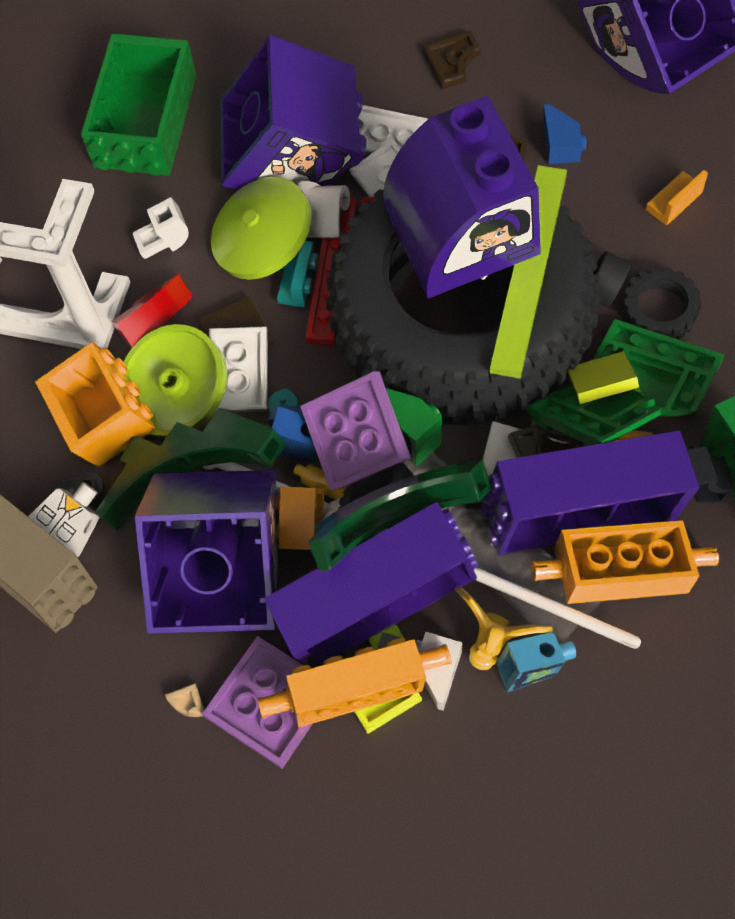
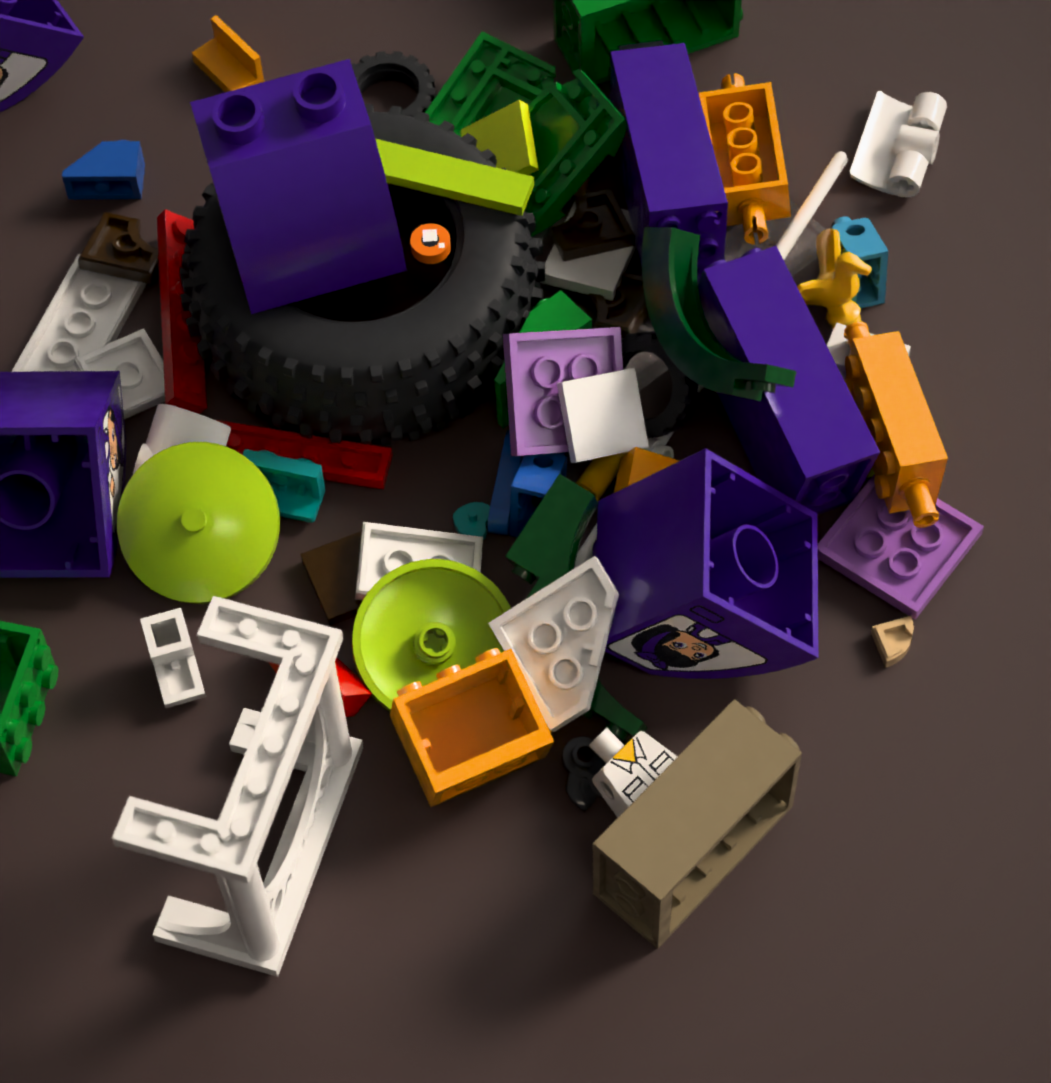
camera: 90 degrees left, 5 degrees down
(150, 450) = (562, 640): none -> white plate
(340, 461) = (602, 415): none -> white tile
(453, 311) = (430, 243): none -> orange tile
(674, 698) = (899, 143): none -> white panel

